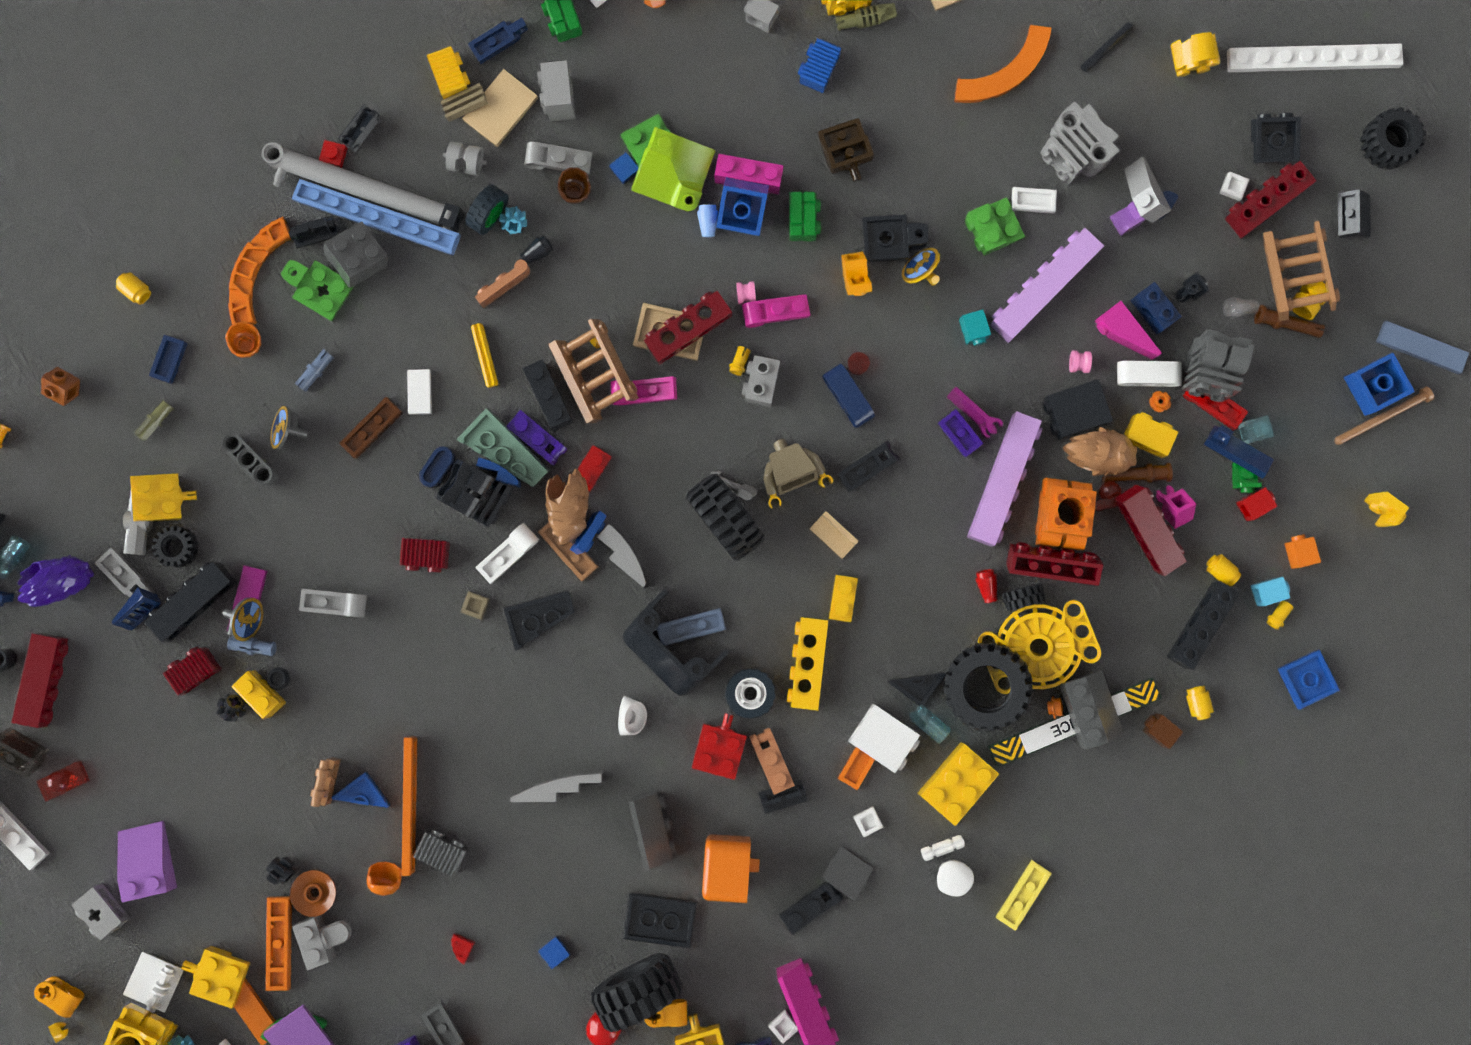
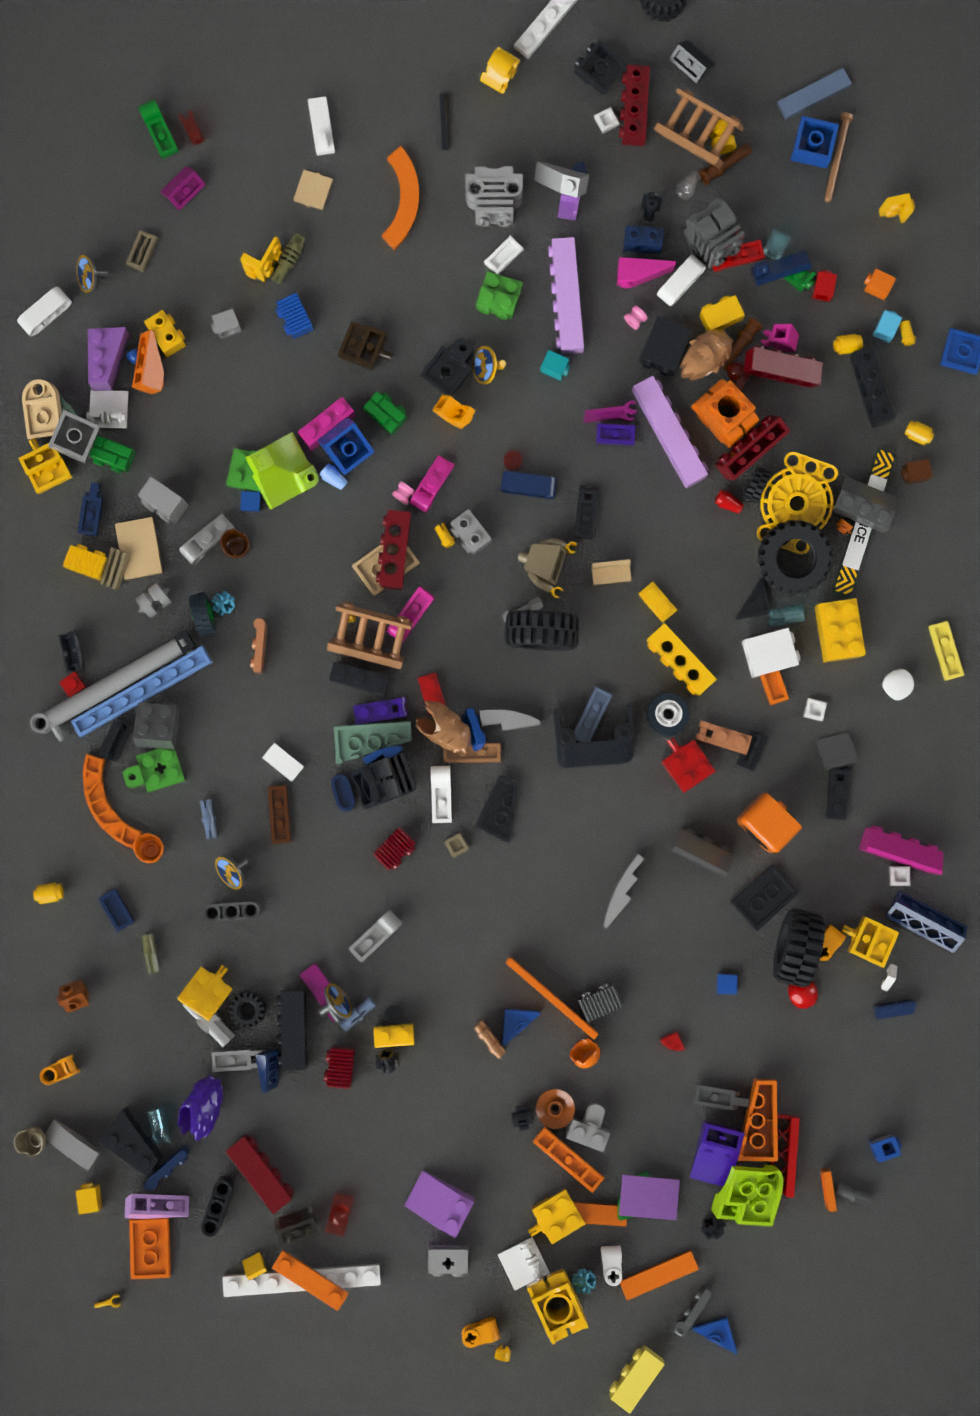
camera: 45 degrees left, 0 degrees up
(484, 355) = (296, 698): yellow axle -> none
(537, 249) = (256, 604): black cone -> none
(631, 716) = (617, 804): white piece -> none
(942, 847) = (872, 676): white axle -> none
(1154, 401) = (700, 289): orange plate -> none

